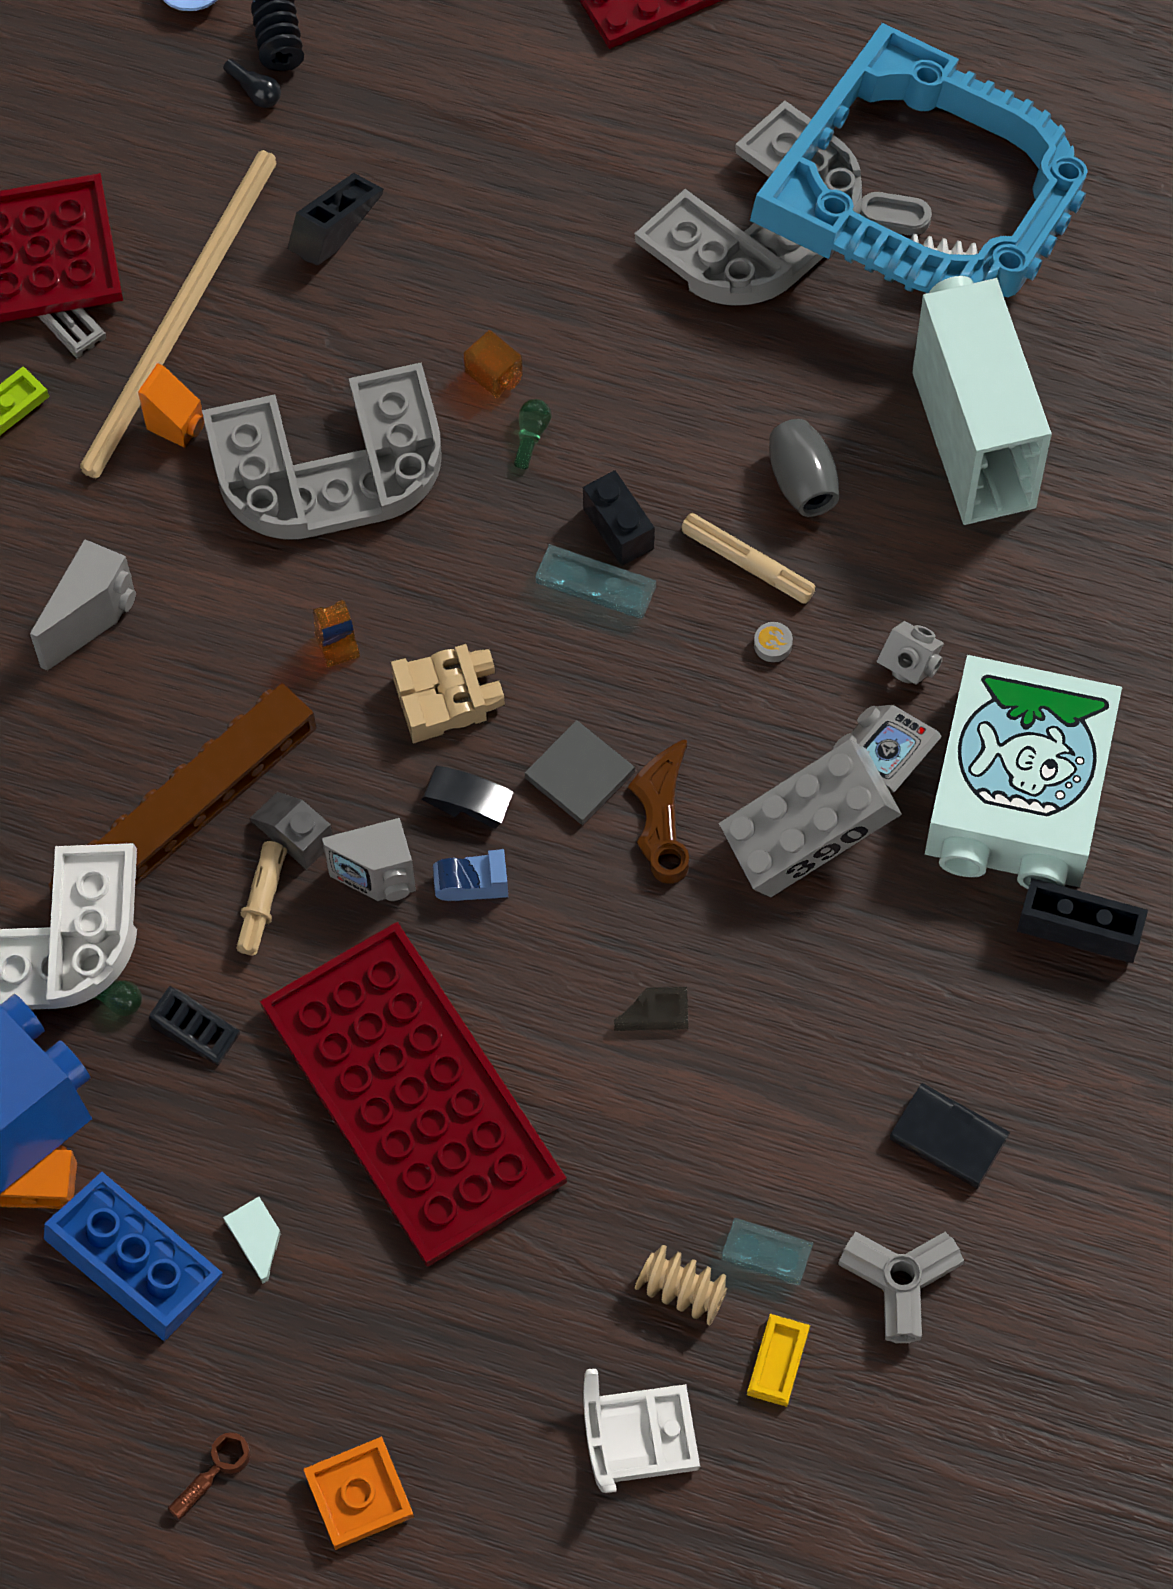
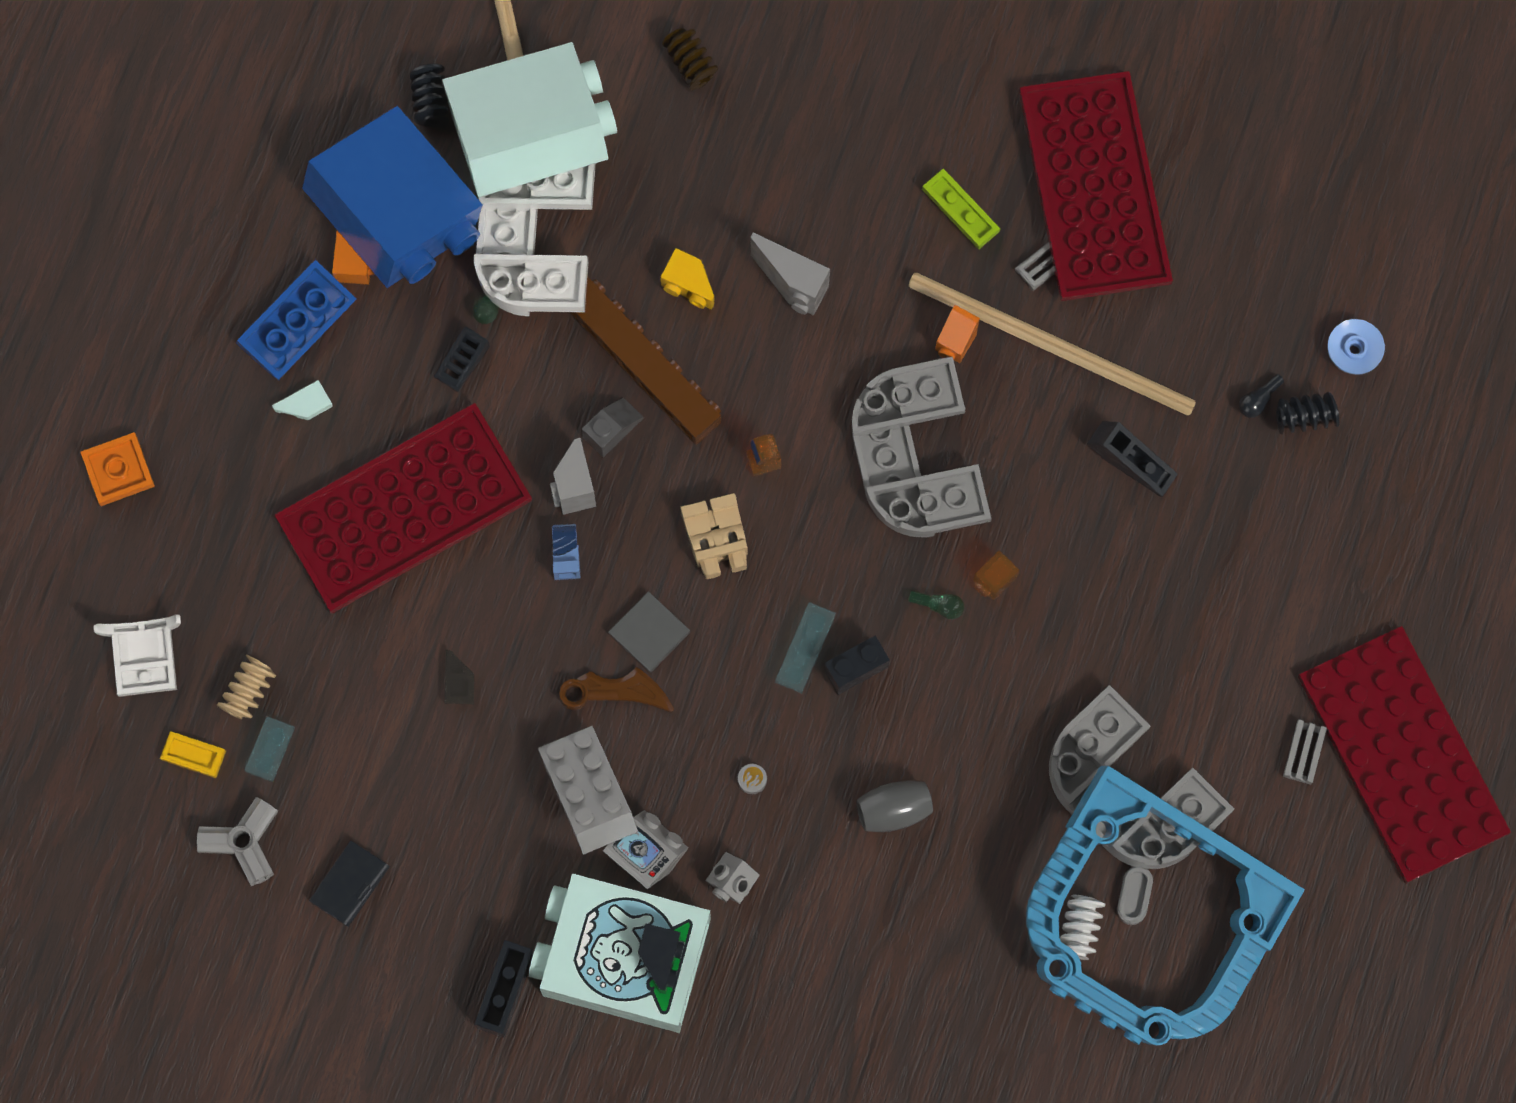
camera: 90 degrees right, 10 degrees up
(82, 736) = (688, 278): none -> yellow slope
(204, 1480) = (136, 370): copper piece -> none
(262, 892) = (556, 404): tan axle -> none
(467, 793) = (630, 549): black slope -> none
(706, 33) = (1298, 776): none -> light grey tile
(748, 558) = (823, 763): tan axle -> none
(980, 399) = (934, 934): light aqua brick -> none
(1037, 703) = (658, 953): none -> black slope

